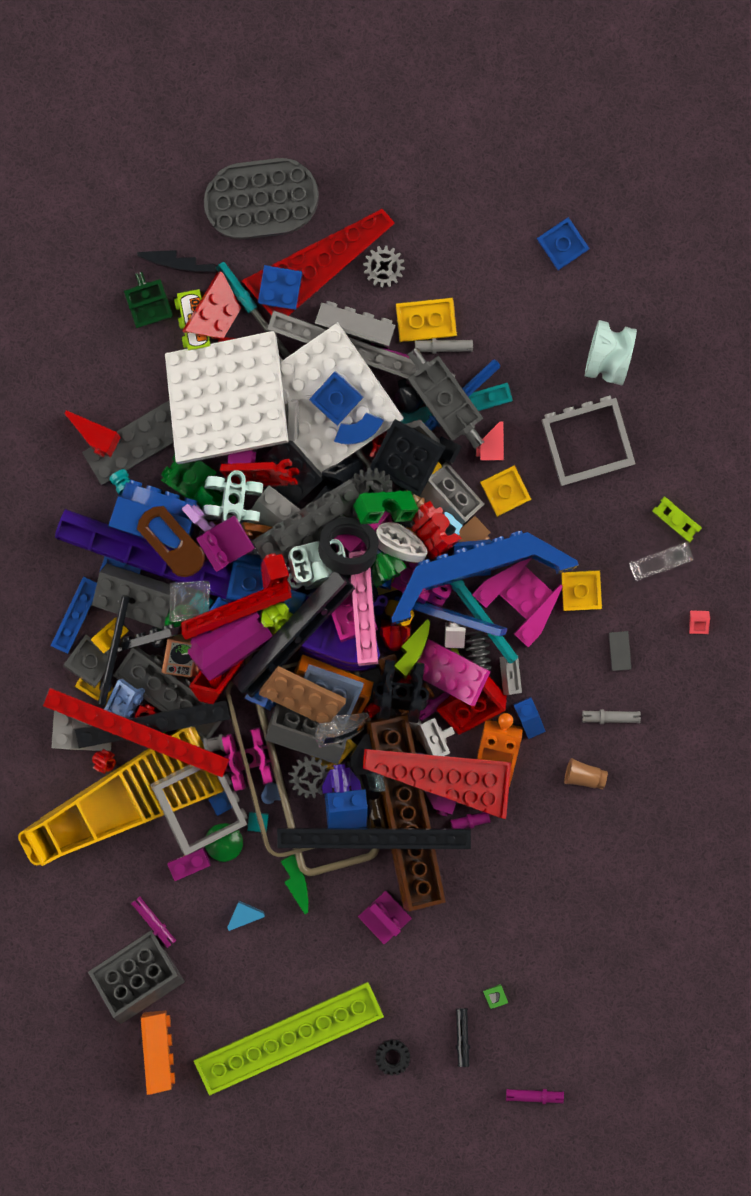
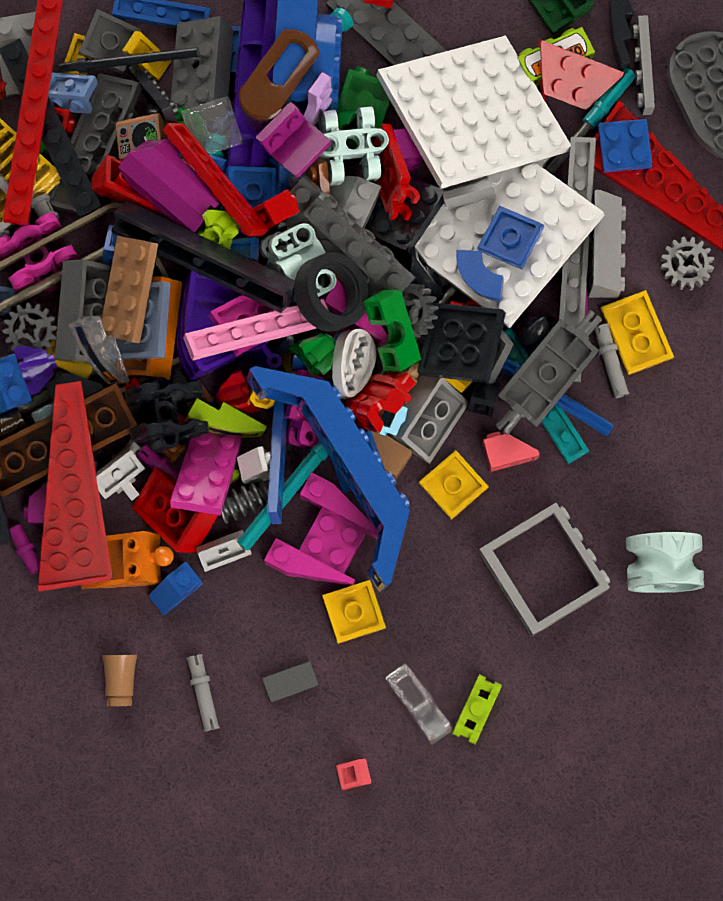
camera: 75 degrees right, 10 degrees down
(226, 255) = (642, 55): none -> light grey plate

